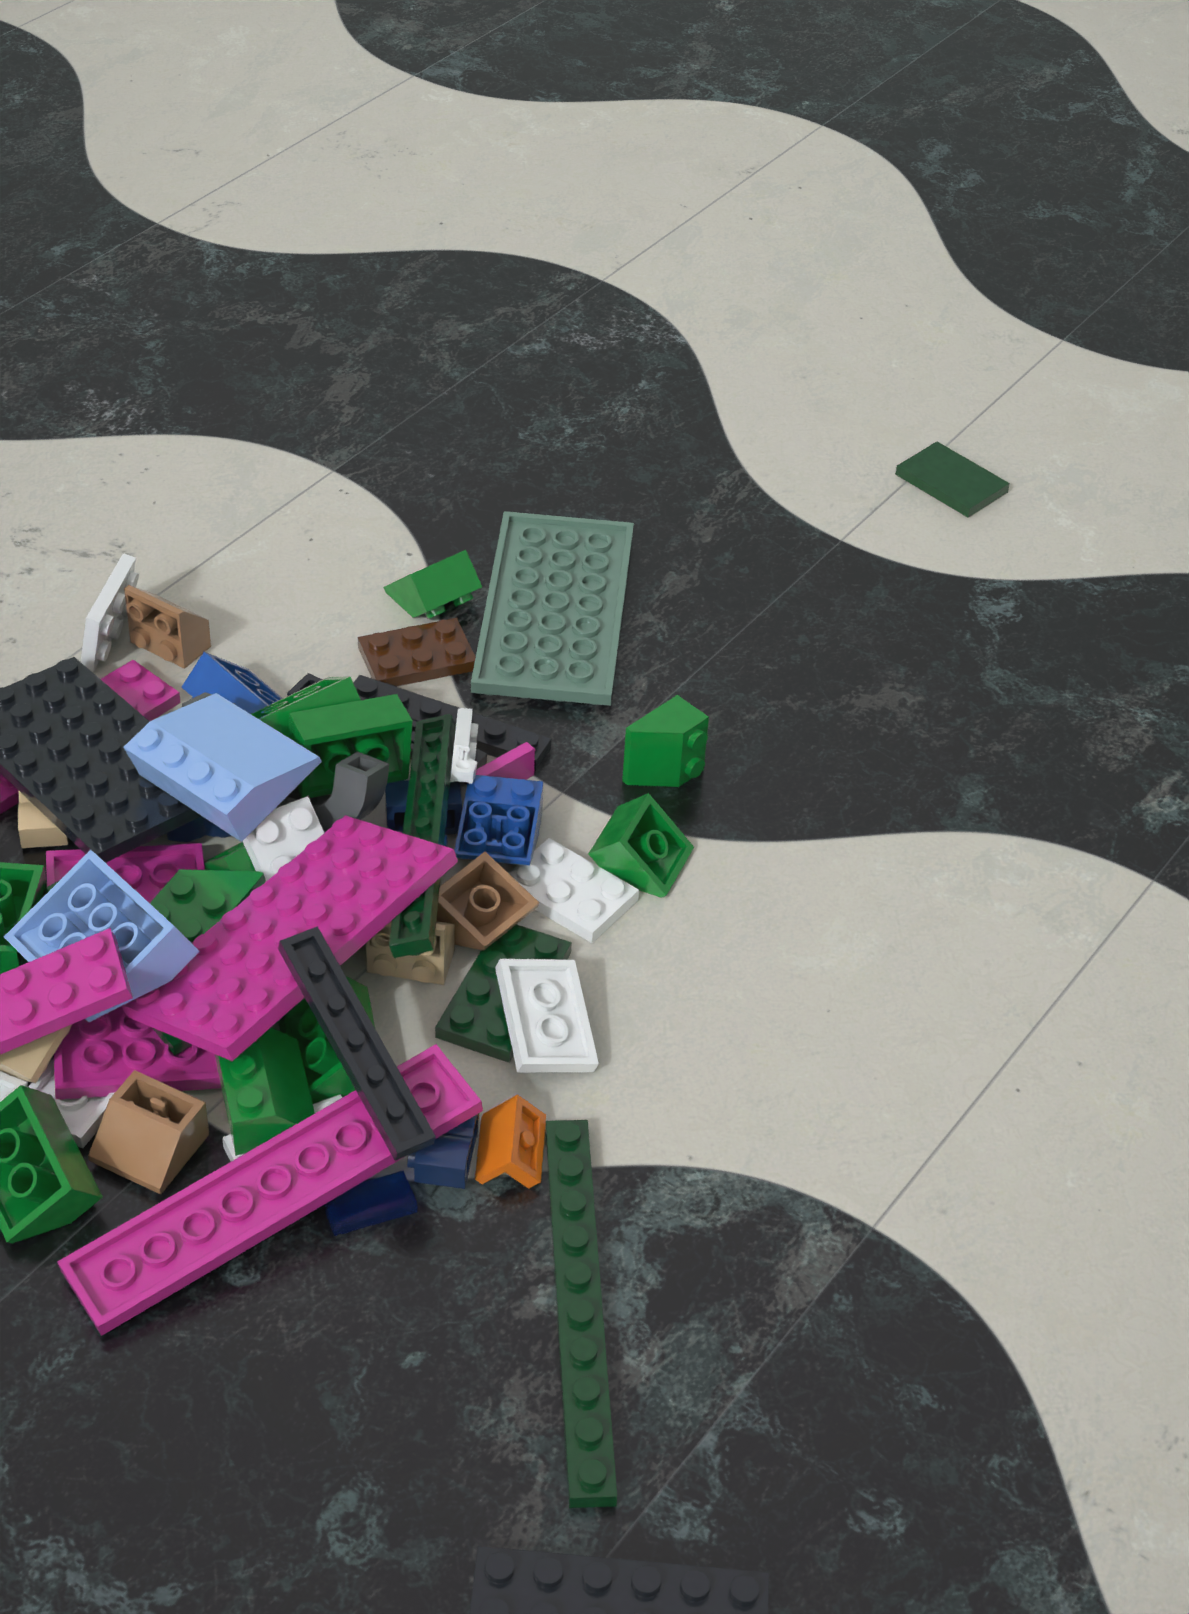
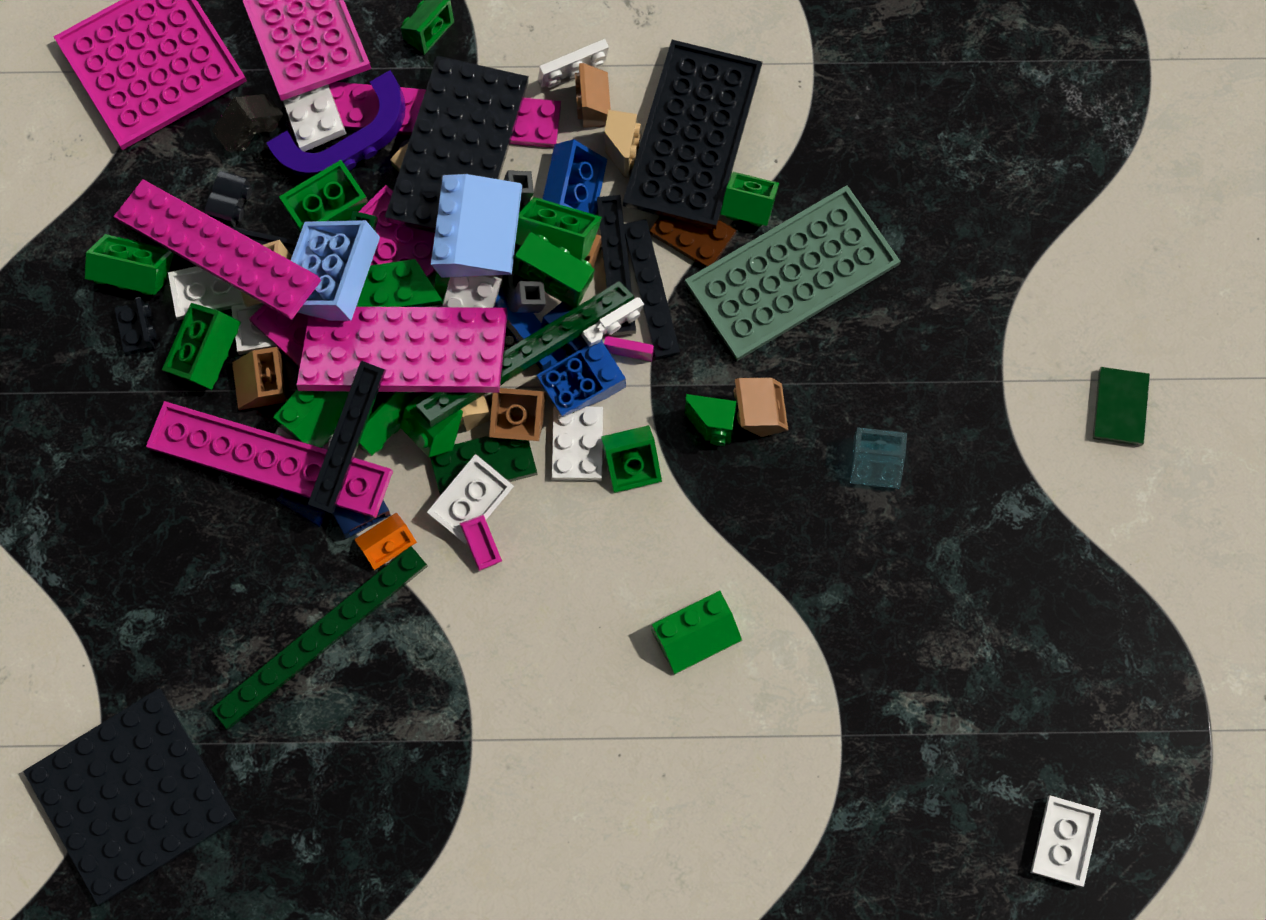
camera: 55 degrees right, 30 degrees up
(249, 629) = (622, 139): none -> tan slope
(309, 583) = (692, 134): none -> black plate
(409, 985) = (430, 439): none -> green slope
(612, 1044) = (480, 542): none -> dark pink tile
(709, 697) = (760, 405): none -> medium nougat slope
(843, 655) = (878, 457): none -> clear light blue slope
(919, 918) = (696, 632): none -> green slope

